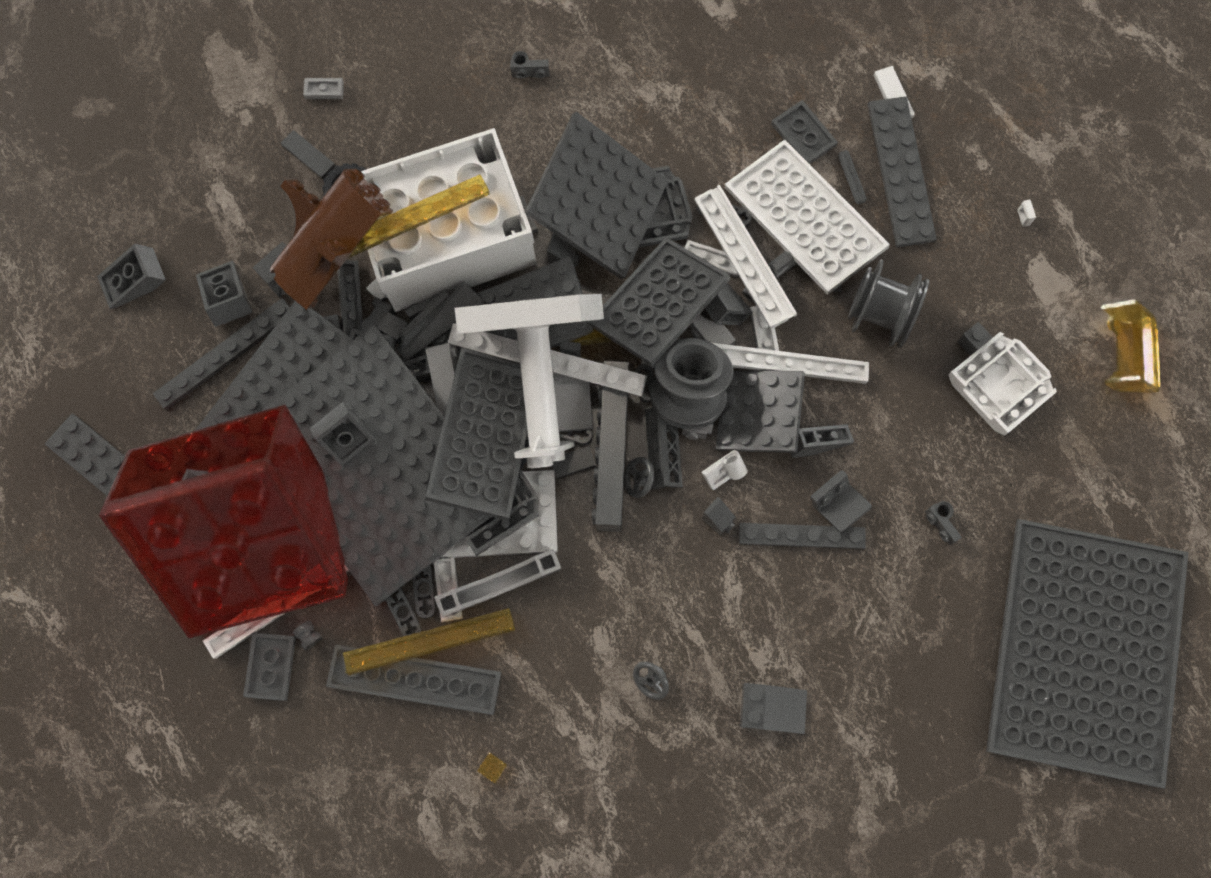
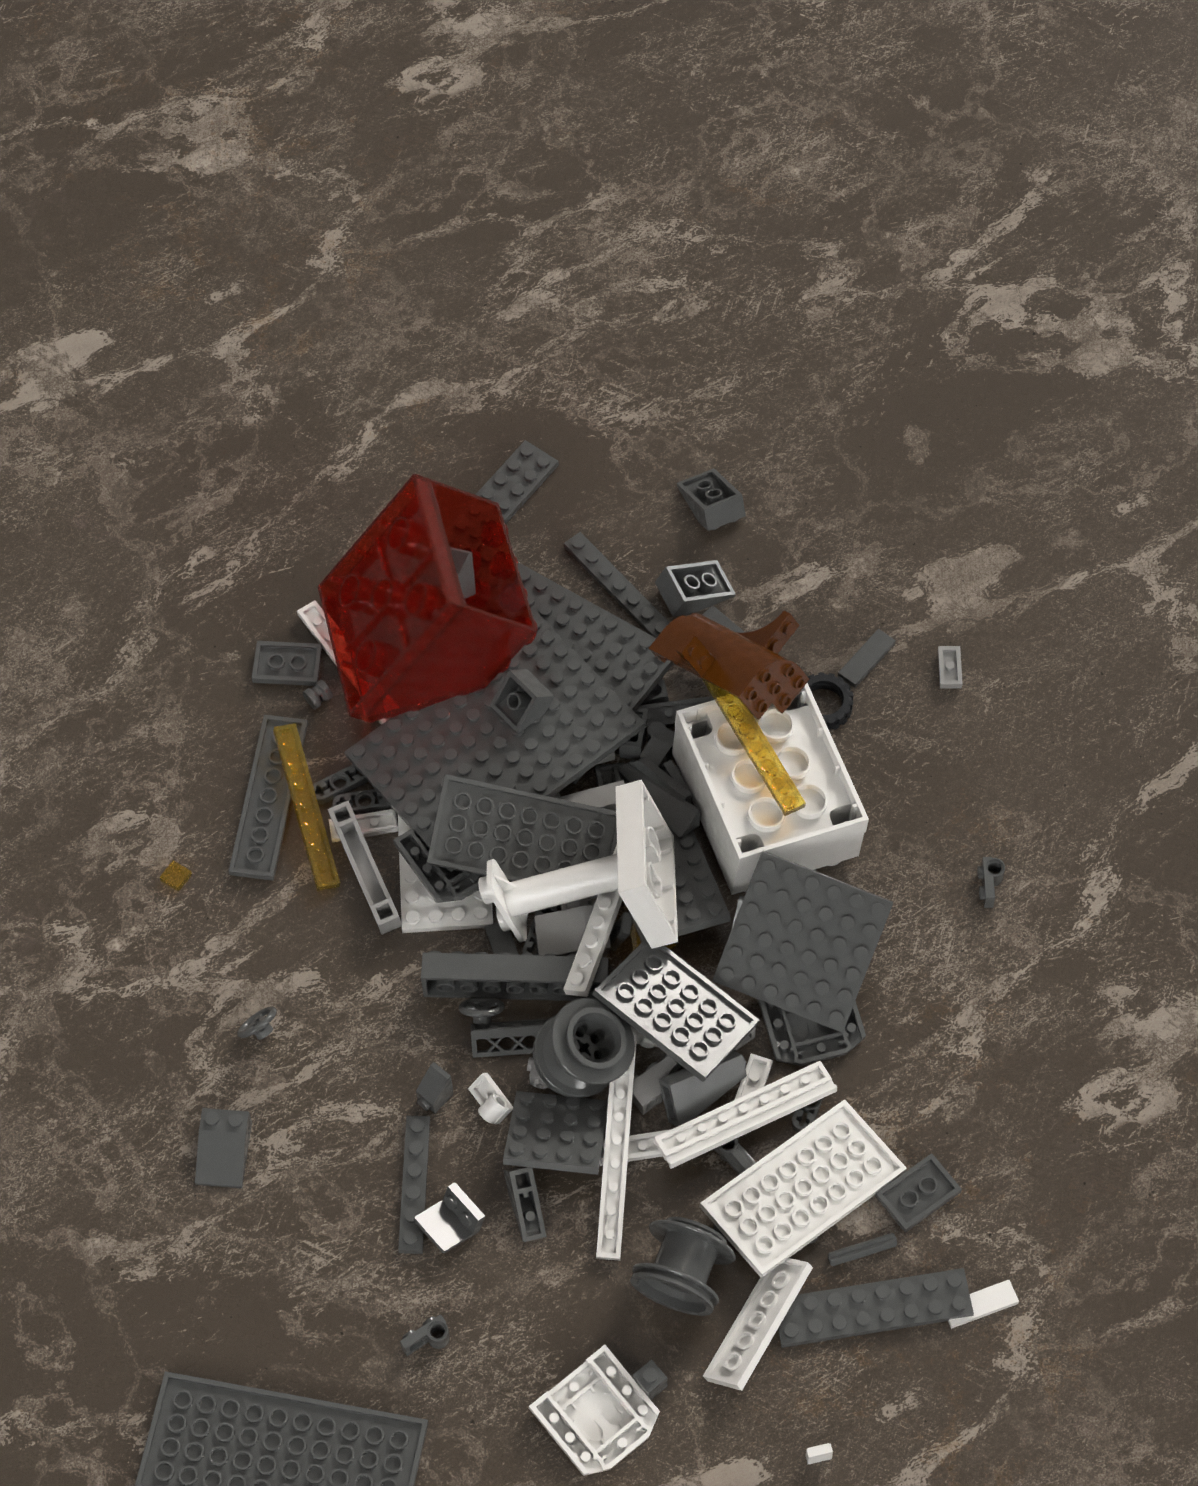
camera: 85 degrees right, 15 degrees down
(928, 255) = (757, 1324): none -> white plate

